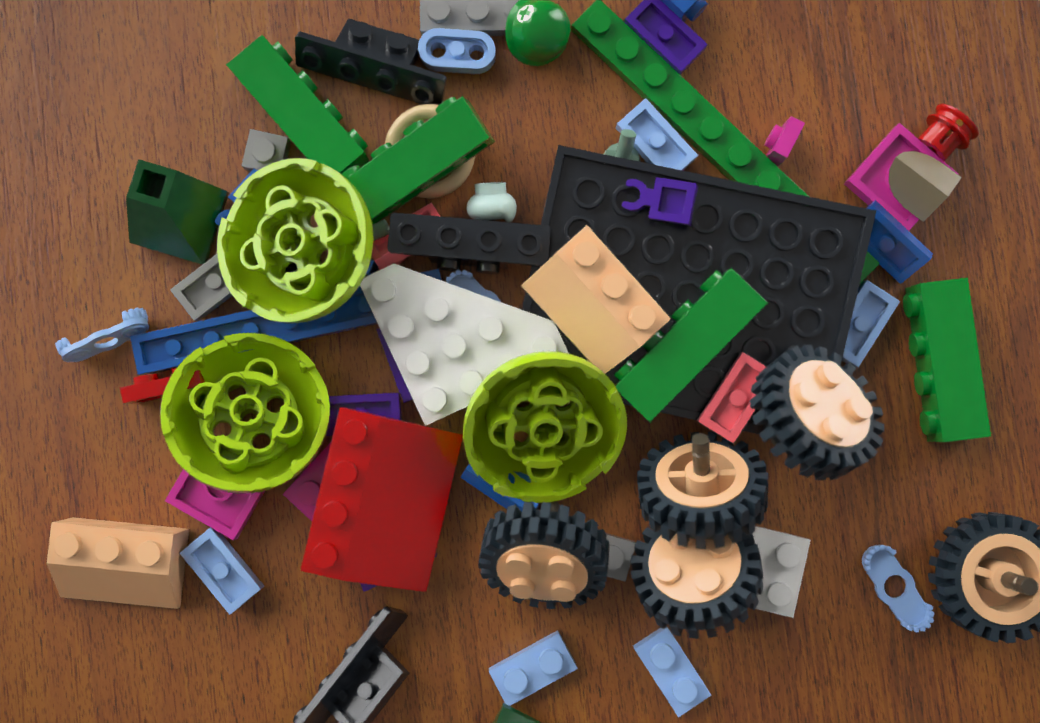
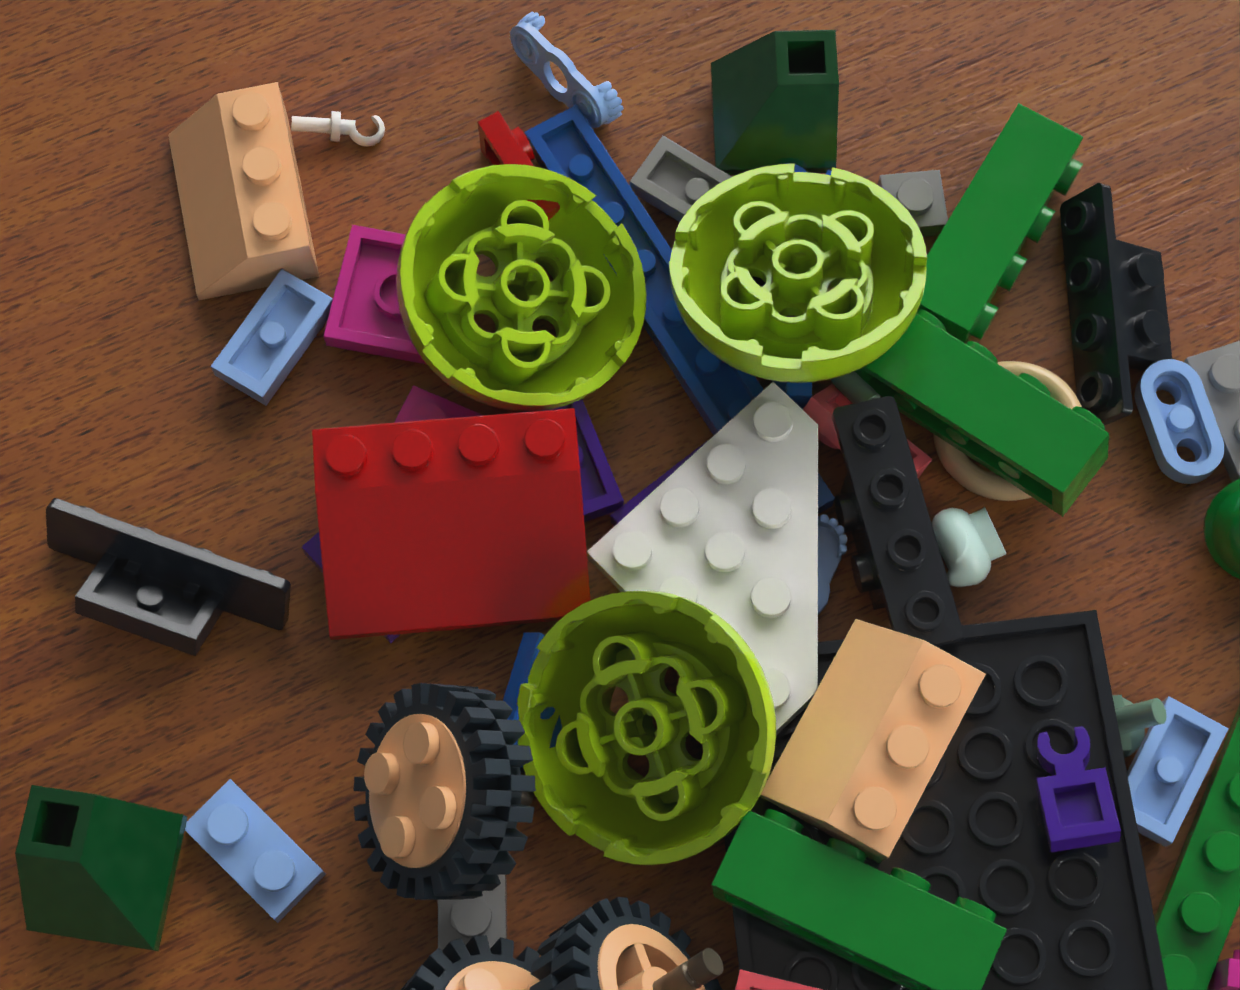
camera: 70 degrees right, 15 degrees down
(91, 490) = (337, 126): none -> white hand

